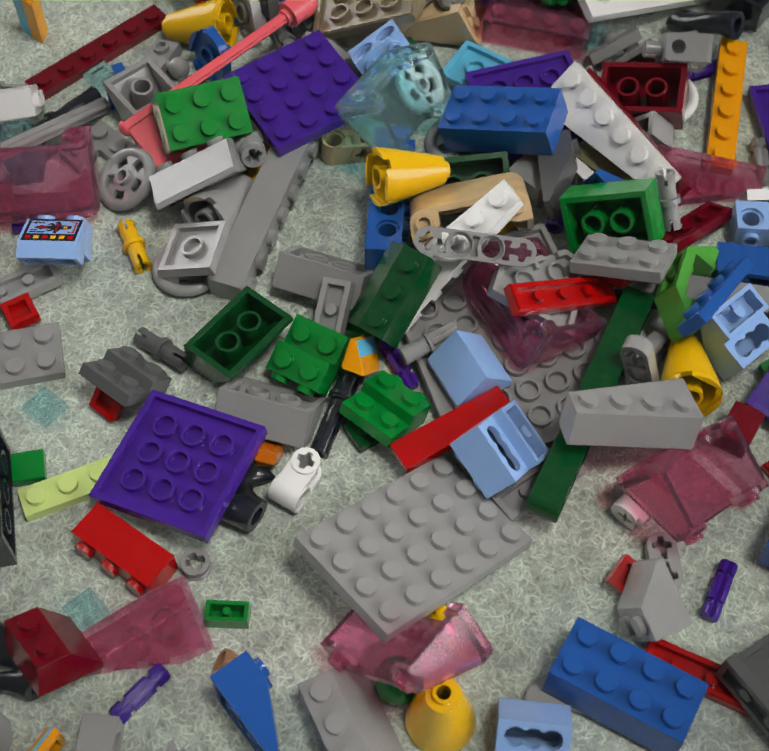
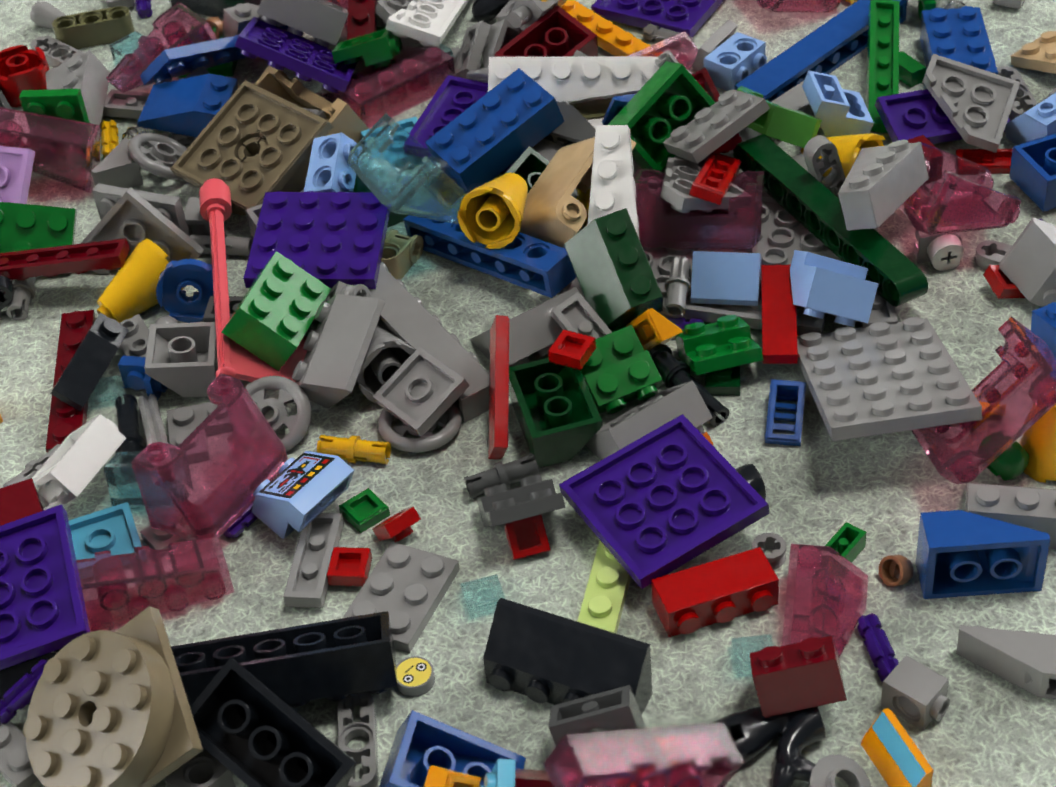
camera: 50 degrees left, 15 degrees down
(73, 316) = (397, 526): none -> red plate
(83, 288) = (364, 510): none -> green tile
(105, 49) = (89, 361): none -> black slope
(220, 297) = (499, 387): none -> red tile
(282, 315) = (572, 349): none -> red plate
(295, 484) = (740, 437): white piece -> none
(347, 486) = (787, 391): none -> blue slope
(474, 249) = (600, 204): light grey beam -> none
(712, 298) = (803, 94): blue plate -> none

